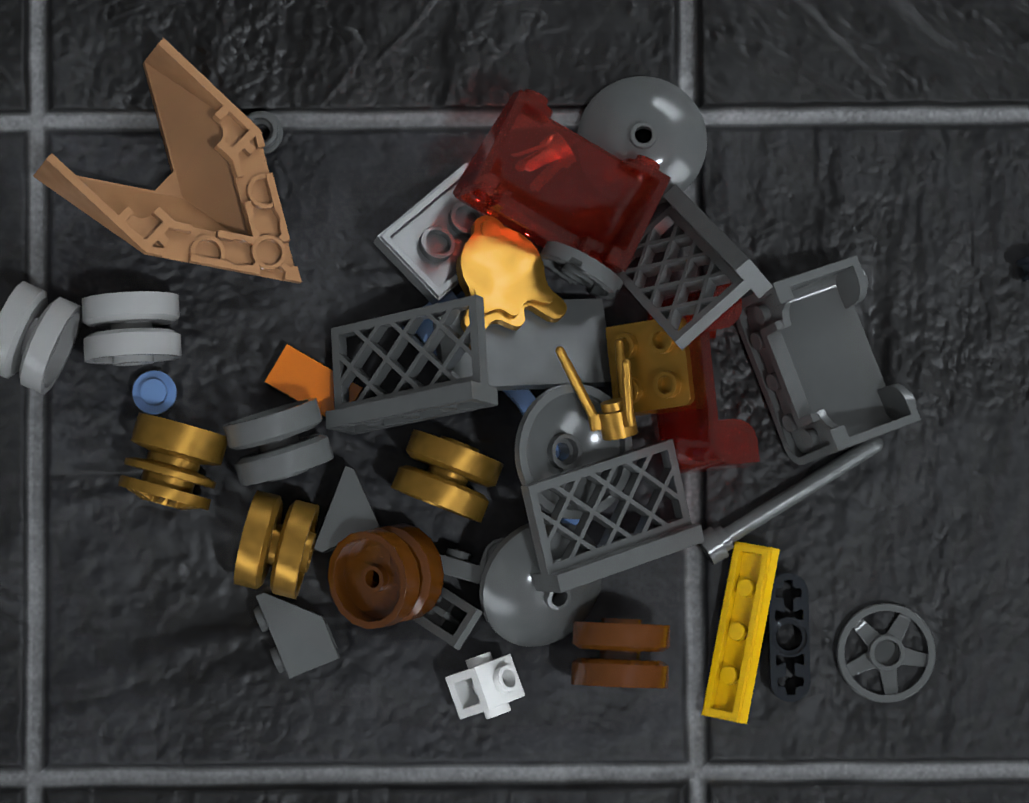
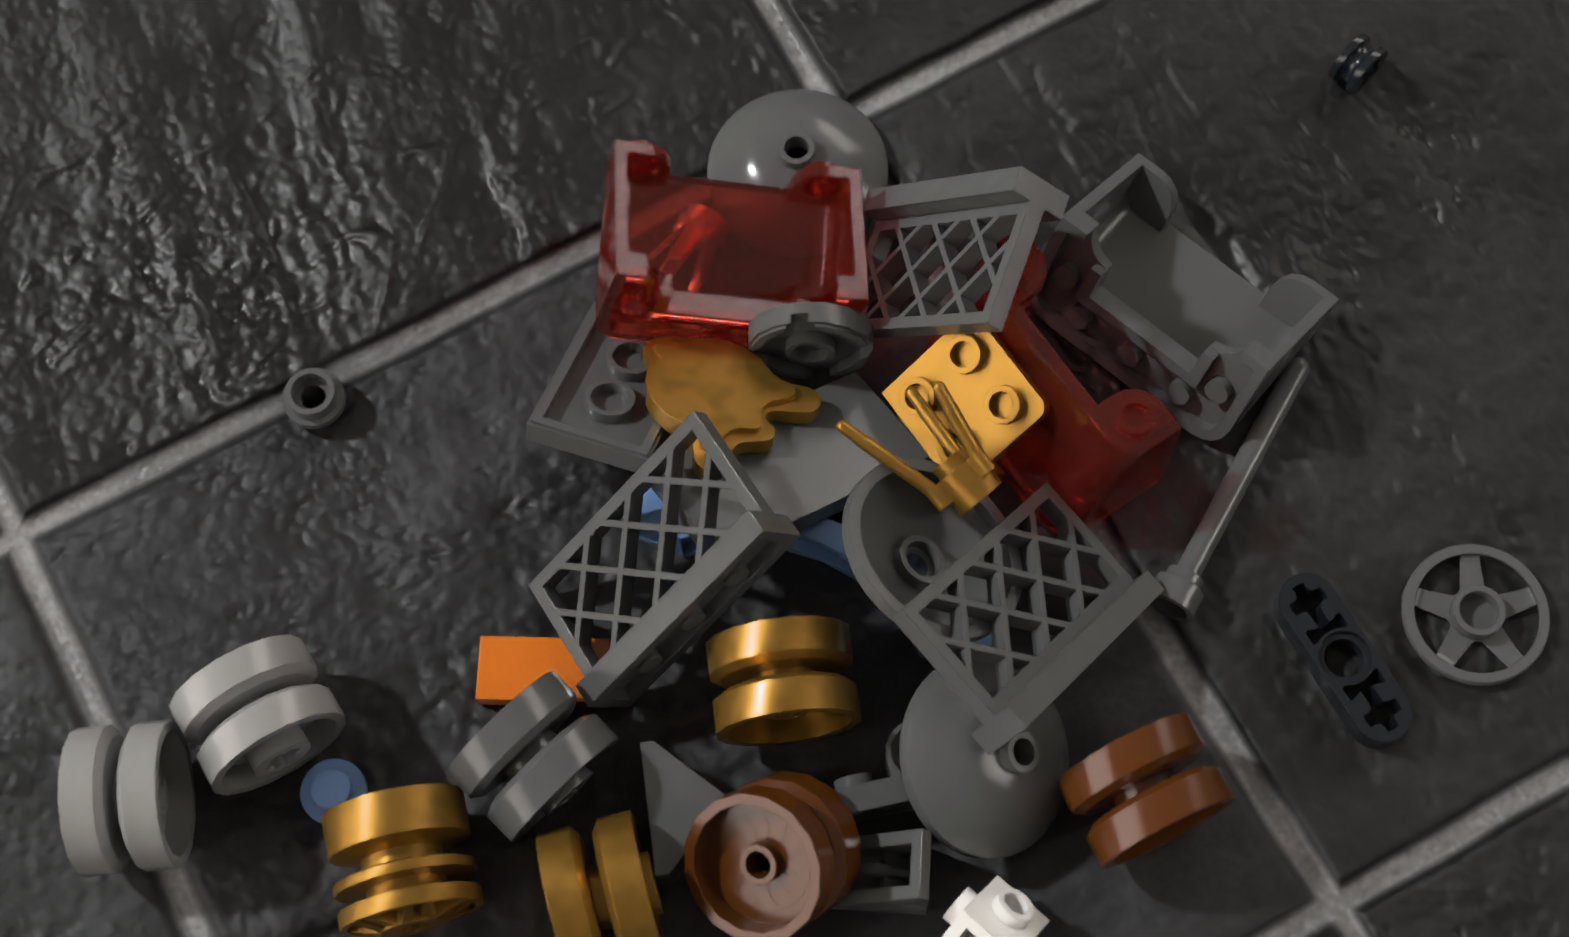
camera: 25 degrees left, 15 degrees down
(216, 202) = (288, 481): medium nougat windscreen -> none
(740, 632) = (1279, 687): yellow tile -> none

